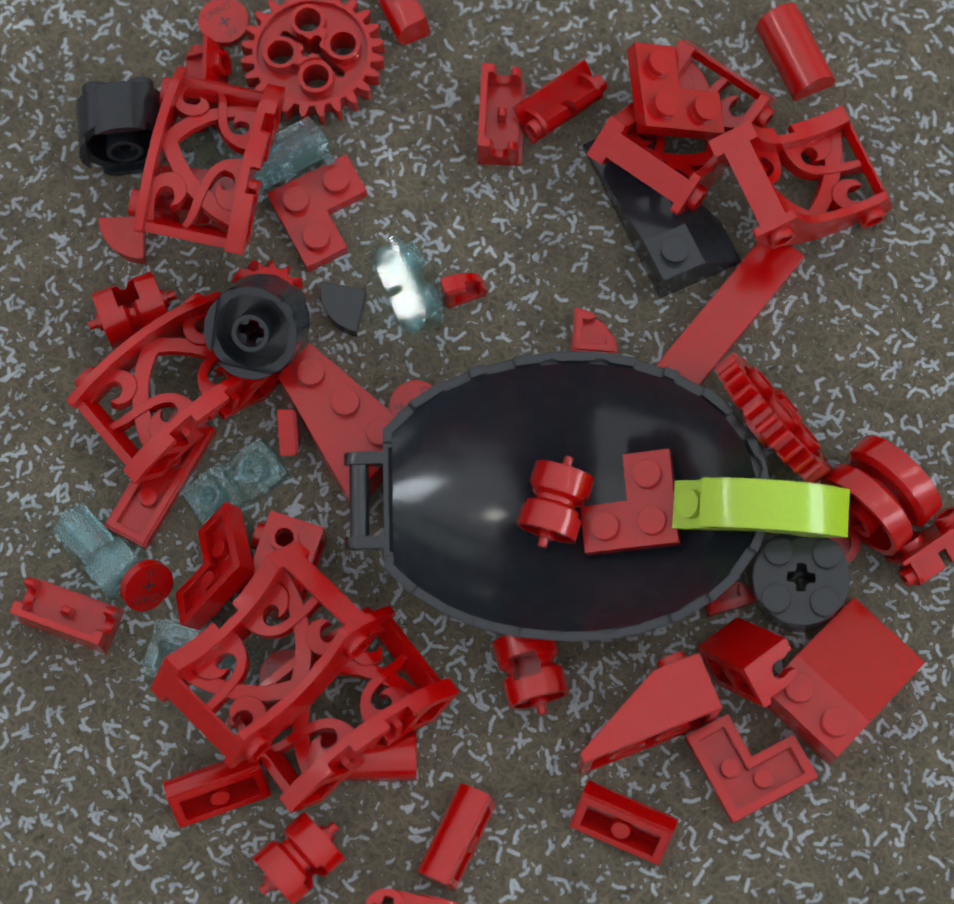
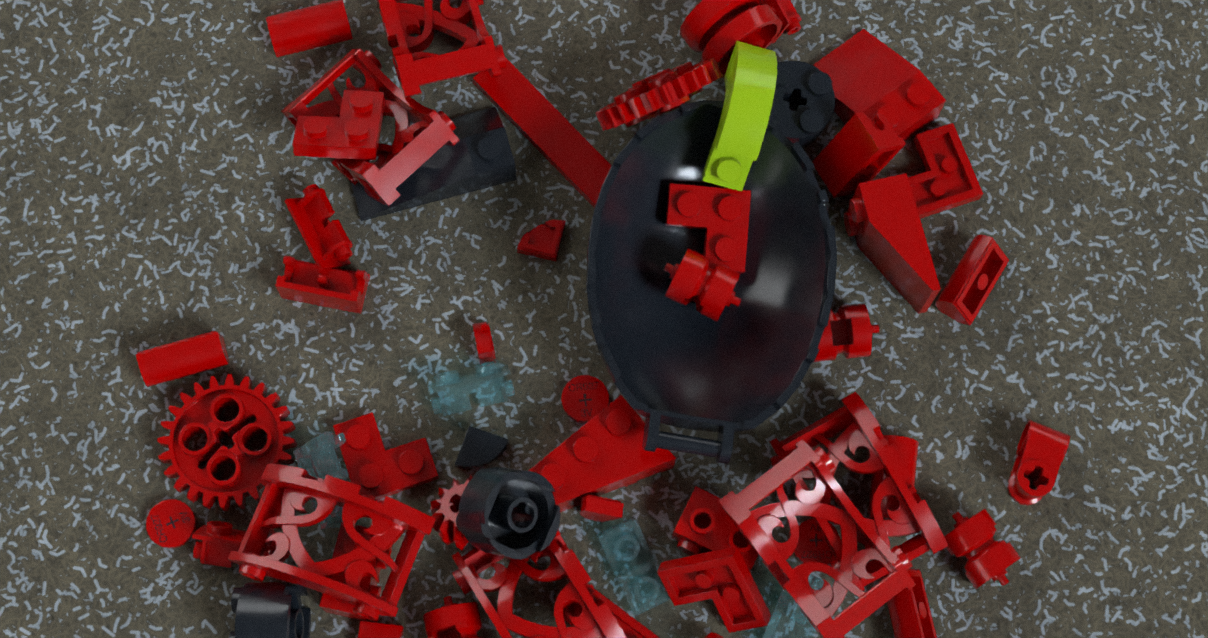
camera: 85 degrees left, 0 degrees up
(457, 836) = (973, 415): red brick -> none

